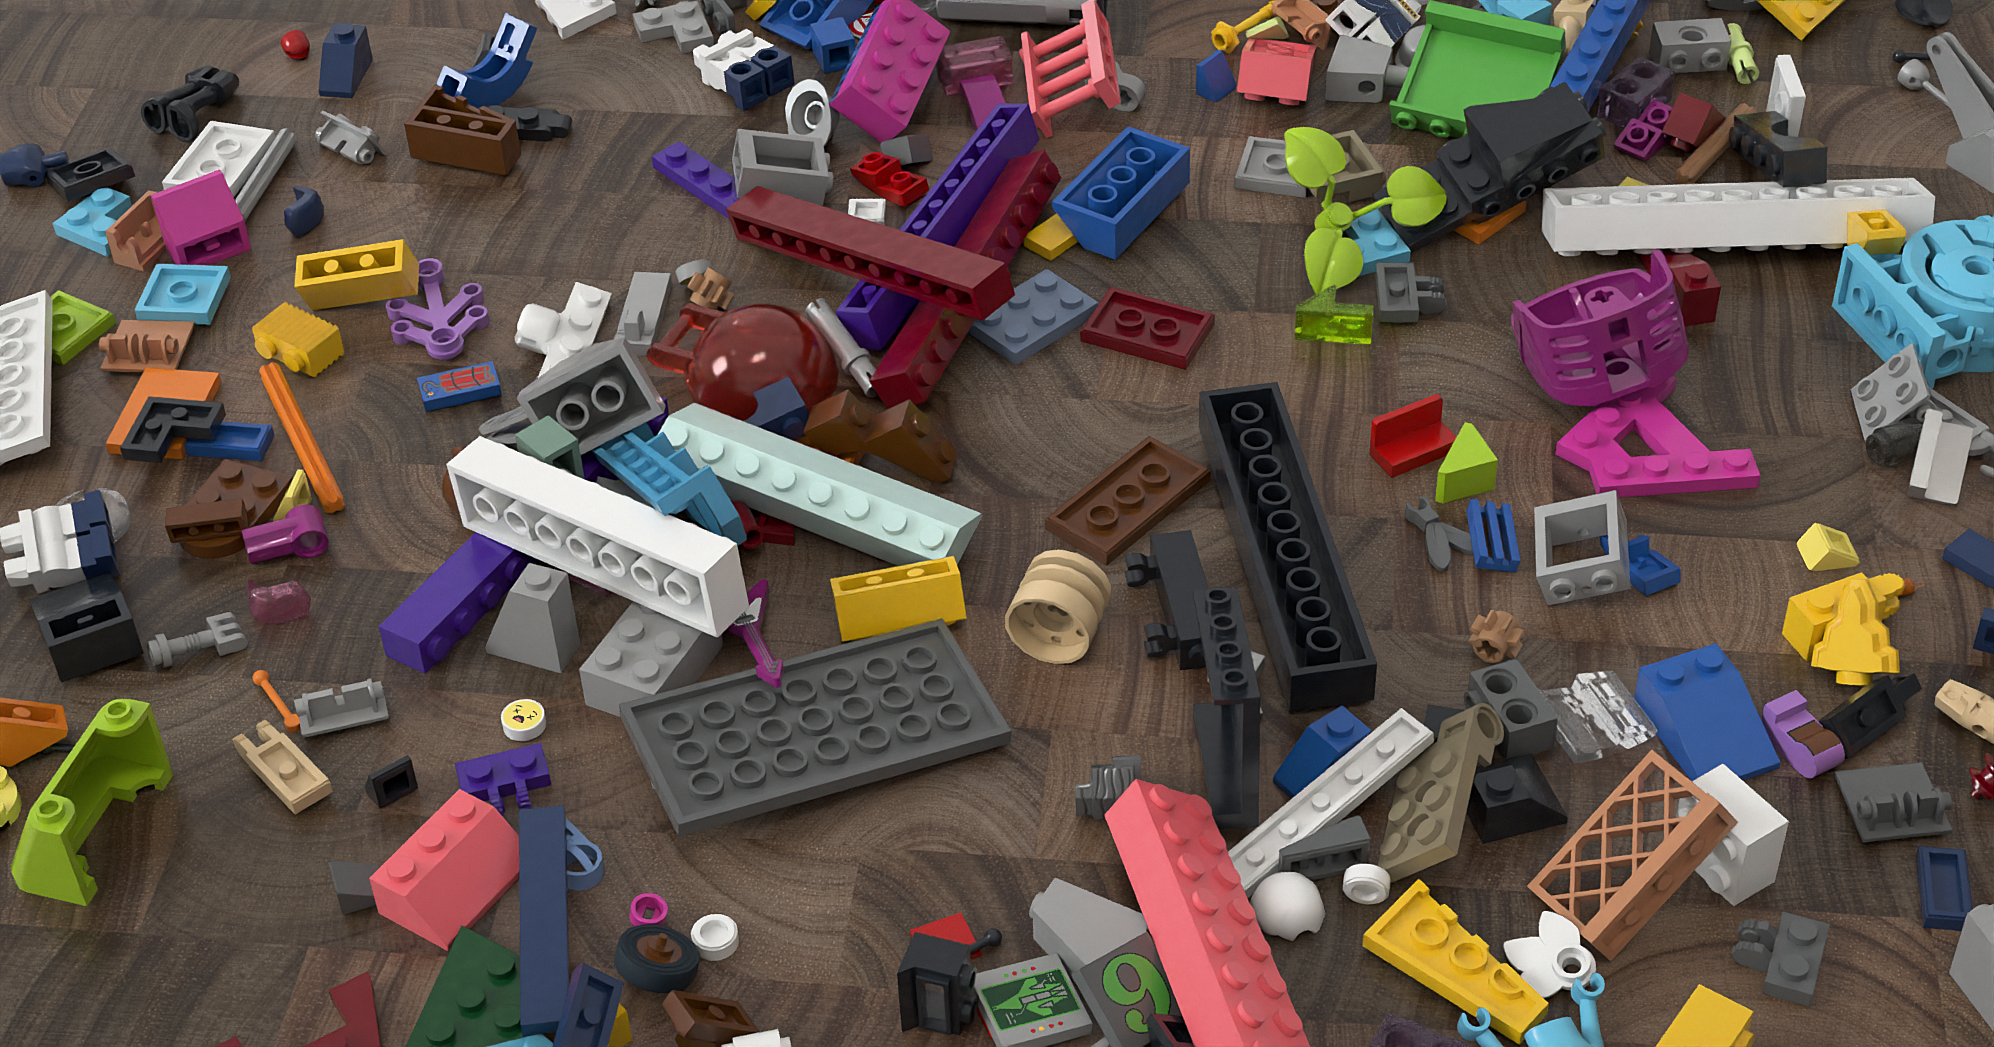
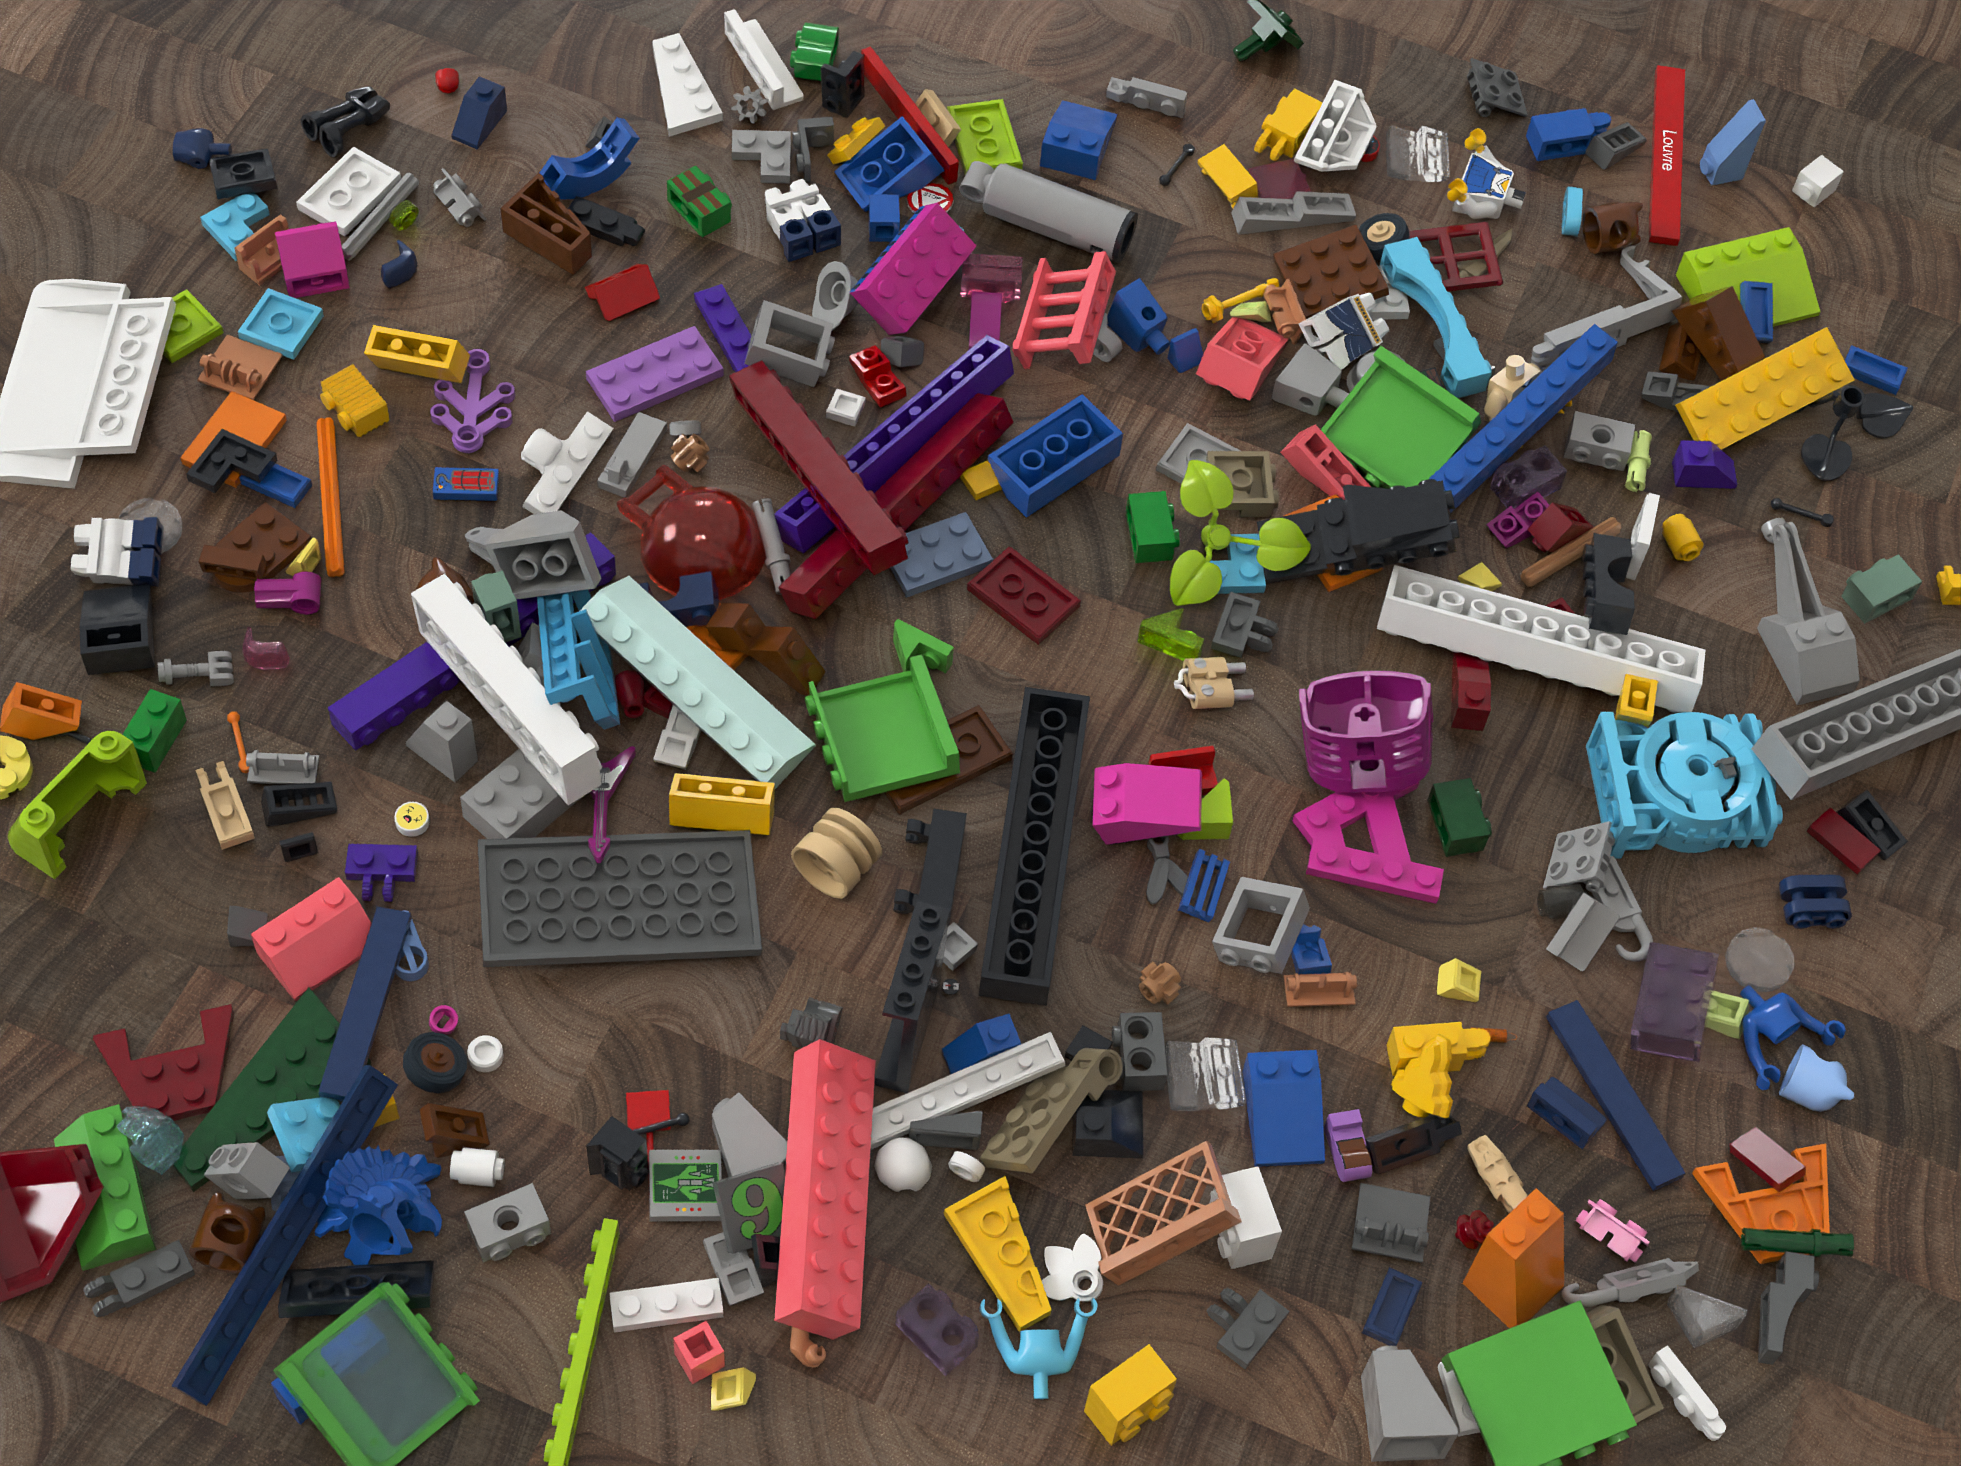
camera: 10 degrees right, 15 degrees up
(174, 702) = (155, 728): none -> green brick
(291, 166) = (404, 215): none -> clear neon green tile
(359, 746) = (289, 814): none -> black slope
(572, 173) = (624, 291): none -> red panel
(622, 78) = (699, 201): none -> green brick
(636, 237) = (654, 373): none -> medium lavender plate
(813, 558) = (677, 741): none -> white slope
(1052, 397) = (913, 642): none -> bright green slope
(1058, 482) = (884, 733): none -> bright green panel
(1153, 56) = (1138, 318): none -> blue torso
(1258, 230) = (1151, 527): none -> green brick
(1389, 466) = (1145, 801): none -> dark pink slope
(1399, 348) = (1210, 684): none -> tan piece
(1409, 129) = (1321, 462): none -> coral slope
(1675, 597) = (1320, 989): none -> nougat hinge
(1738, 397) = (1459, 817): none -> dark green brick
(1806, 40) = (1703, 466): none -> dark purple slope
(1826, 103) = (1682, 537): none -> yellow brick

